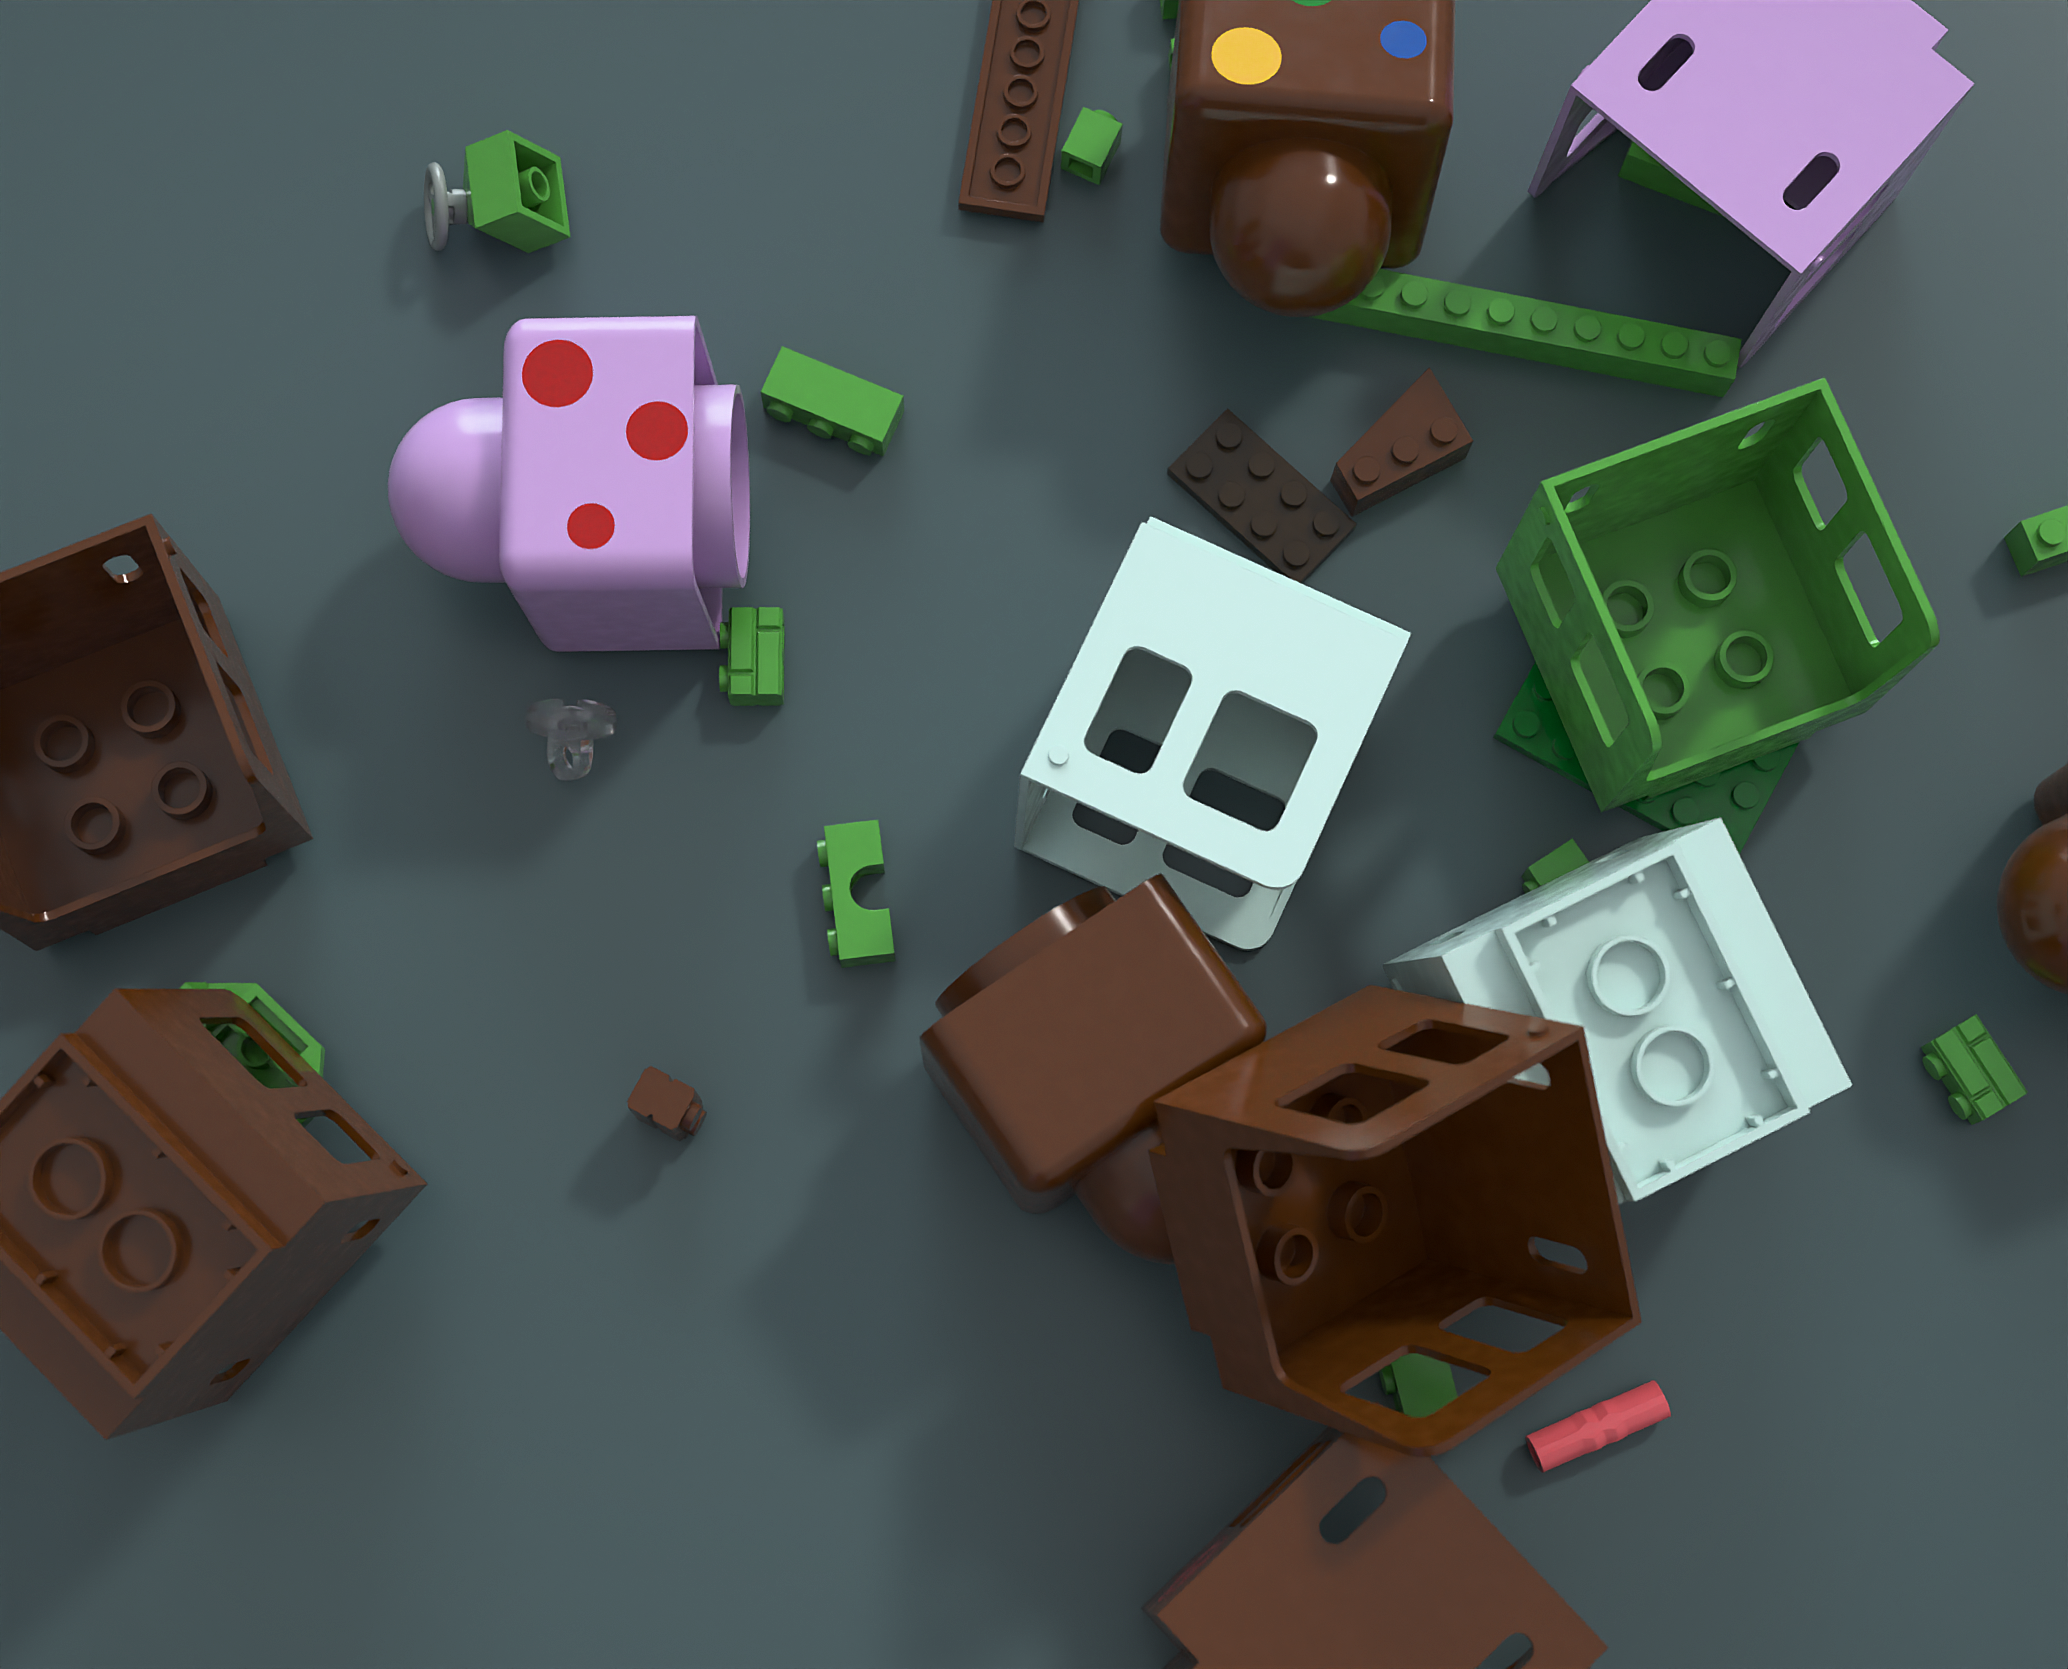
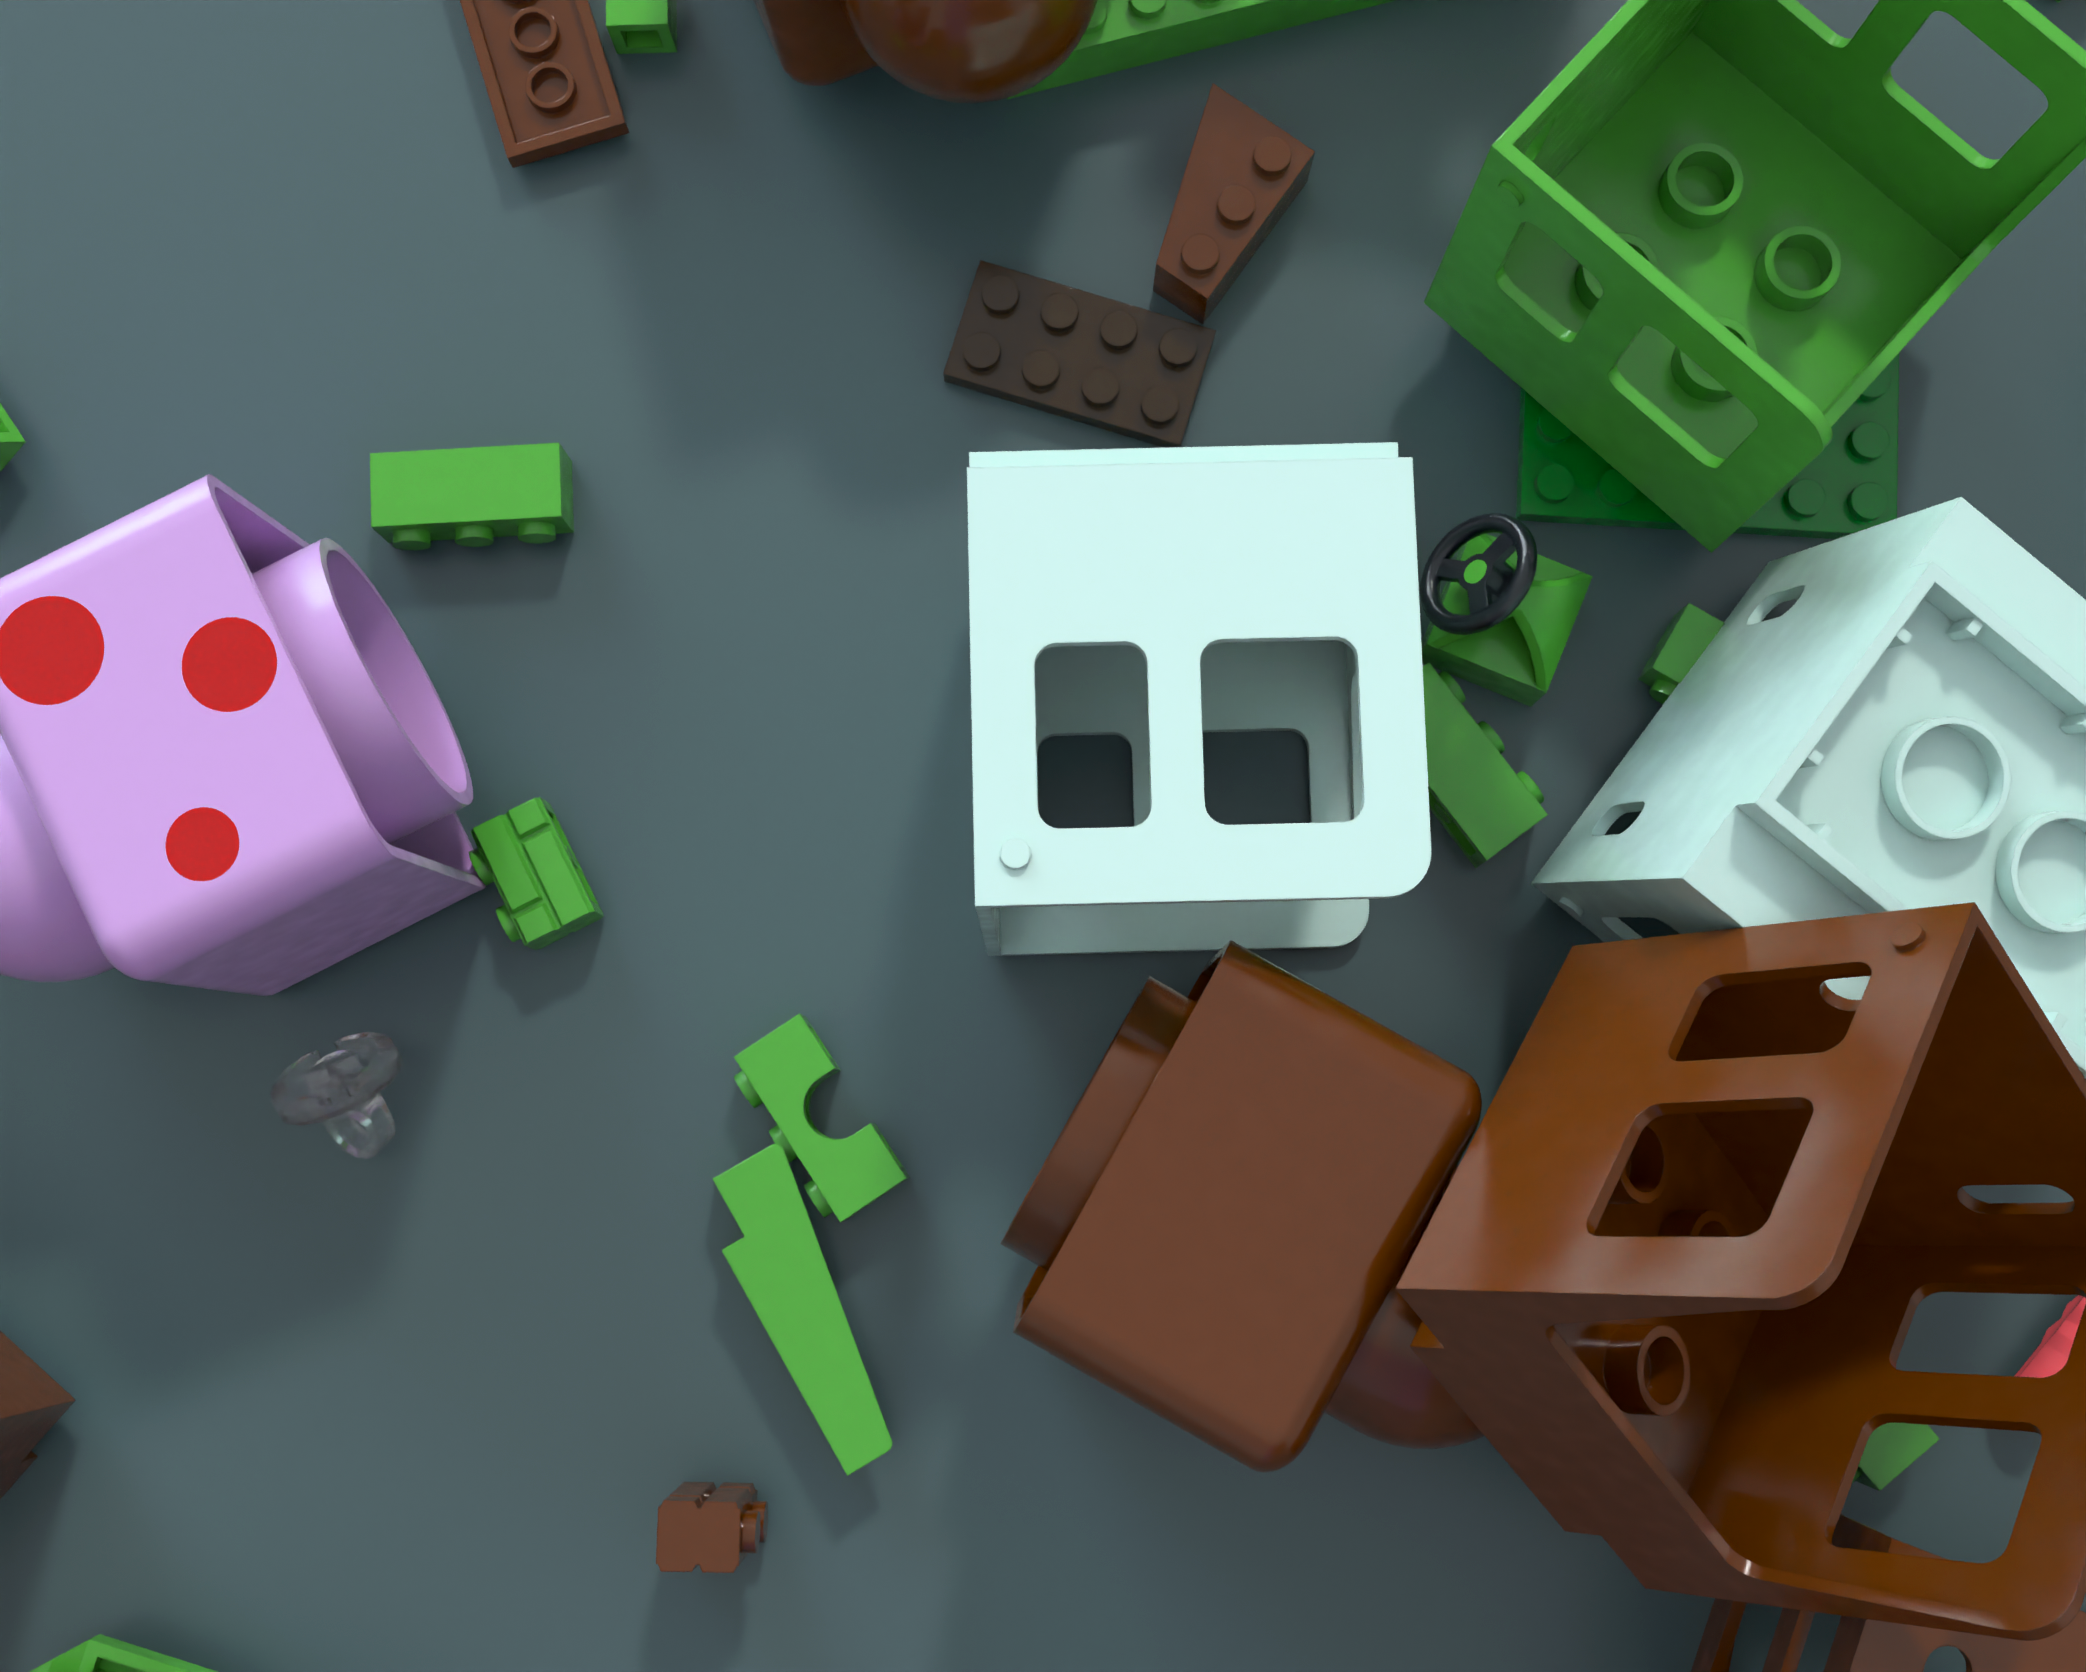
camera: 20 degrees left, 5 degrees up
(787, 998) = (799, 1305): none -> bright green wedge
(1372, 869) = (1469, 779): none -> bright green brick
(1449, 785) = (1500, 608): none -> bright green piece

